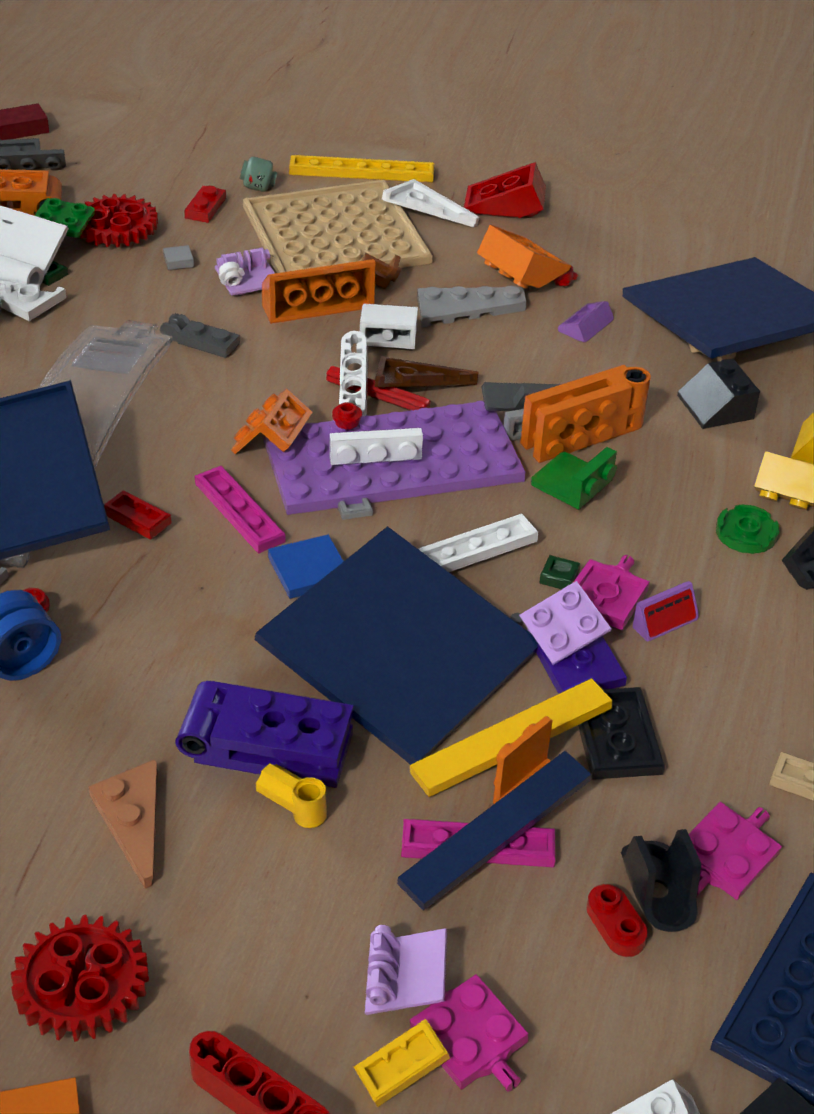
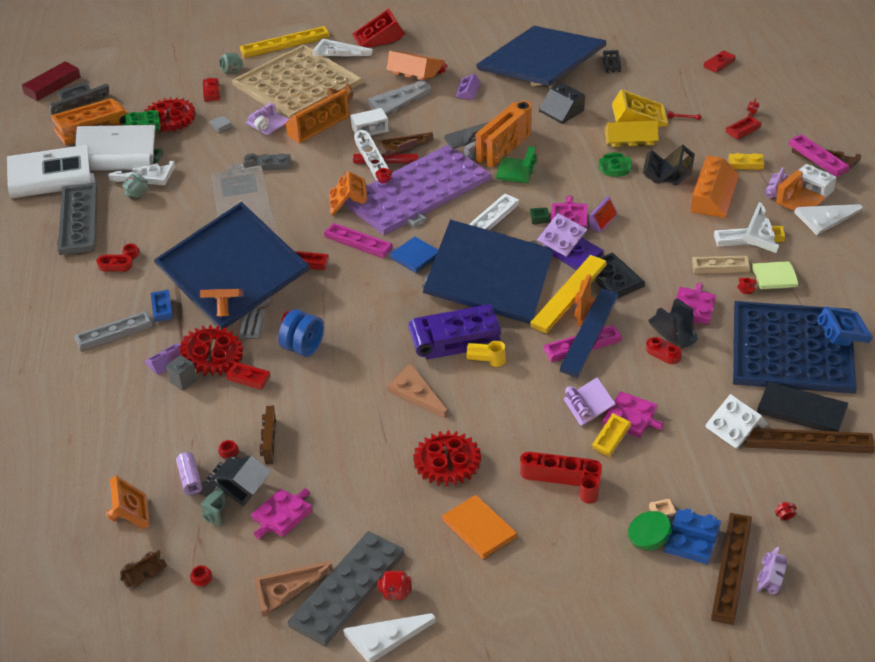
camera: 20 degrees left, 0 degrees up
(376, 446) = (411, 184): white plate -> none

